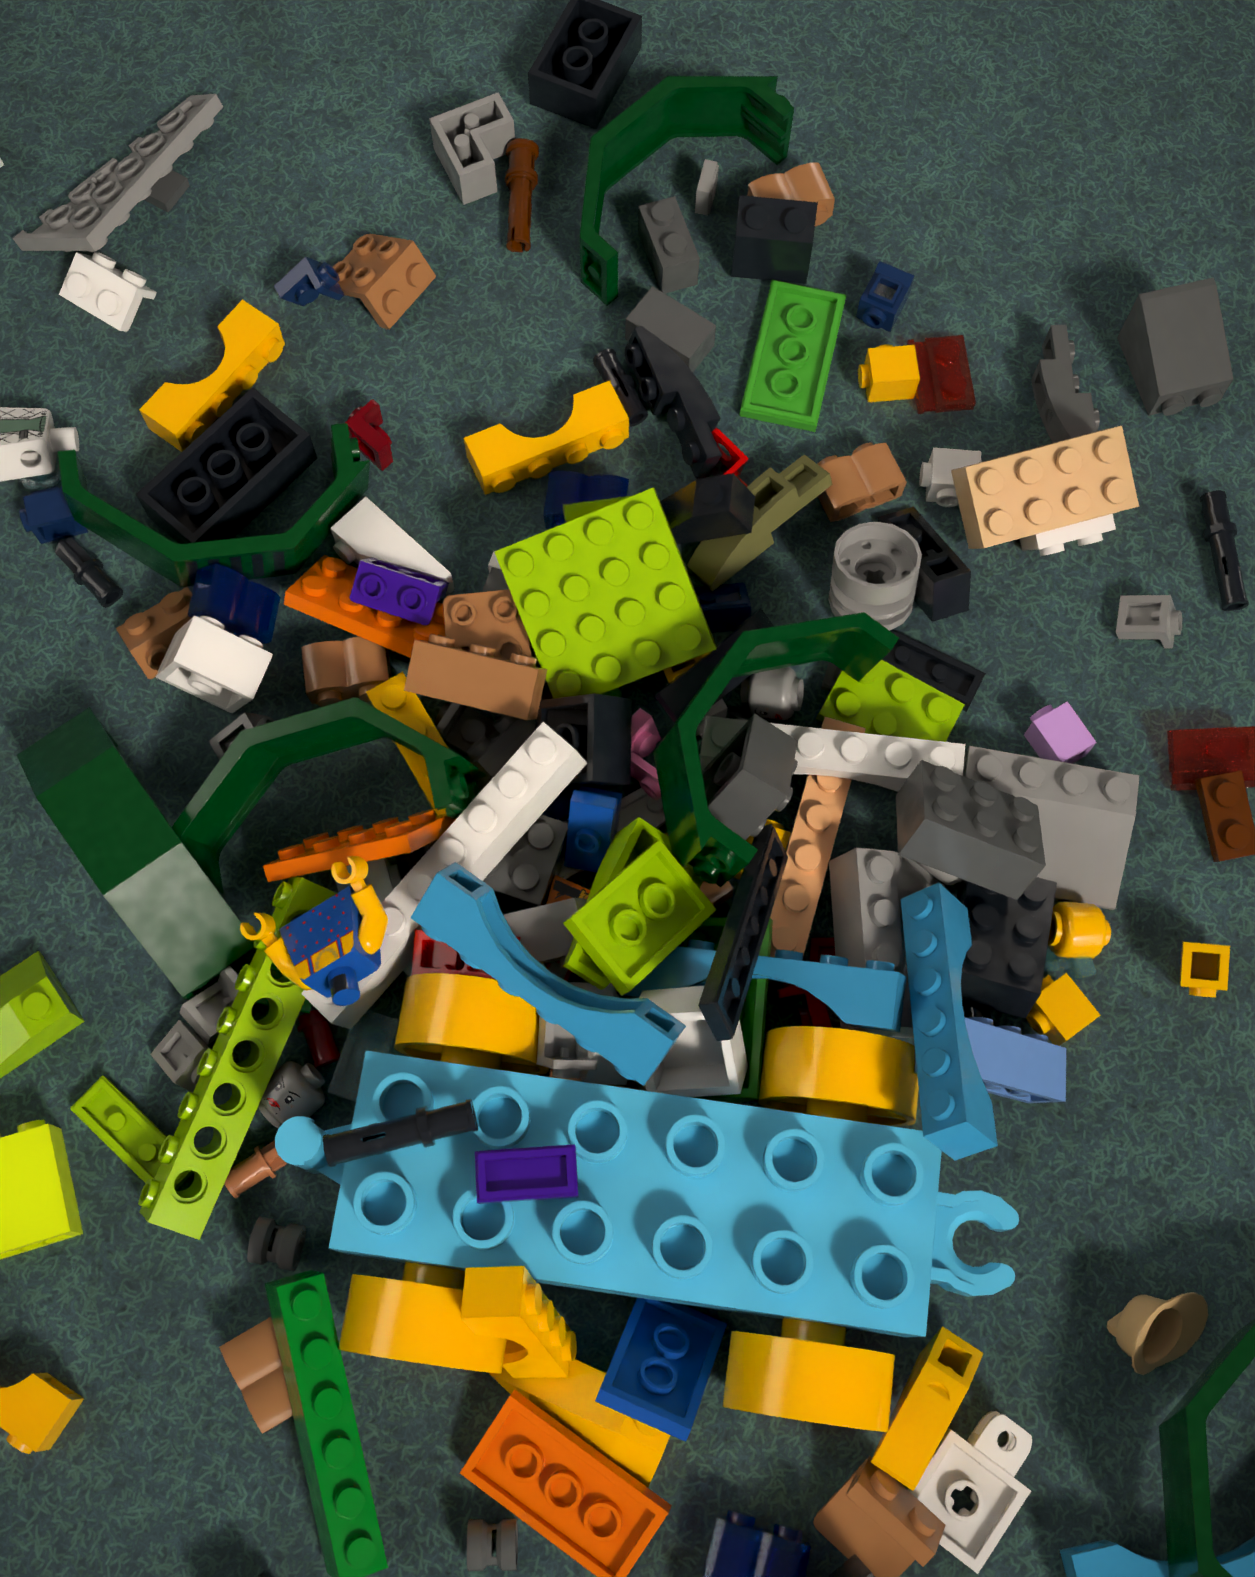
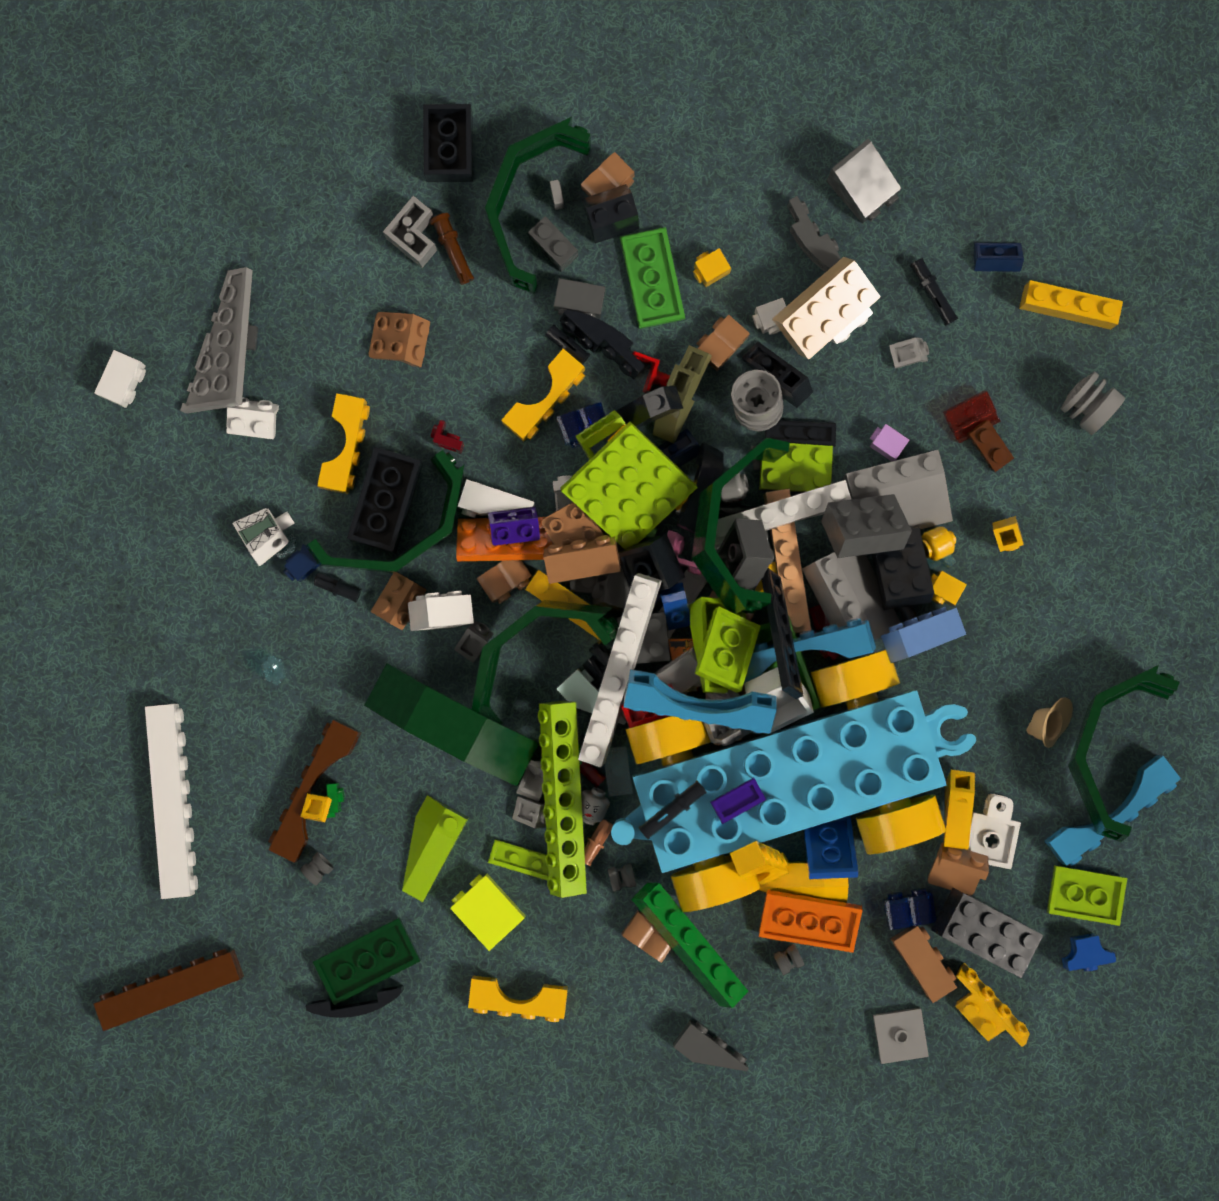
camera: 25 degrees left, 15 degrees up
(235, 602) = (431, 574): clear blue brick -> none
(307, 280) = (367, 361): dark blue bracket -> none
(332, 942) = (585, 732): torso -> none
(382, 841) = (568, 674): orange plate -> none
(884, 297) = (688, 220): dark blue window -> none
(944, 375) = (739, 252): clear red plate -> none
(951, 1091) = (912, 668): dark azure arch -> none

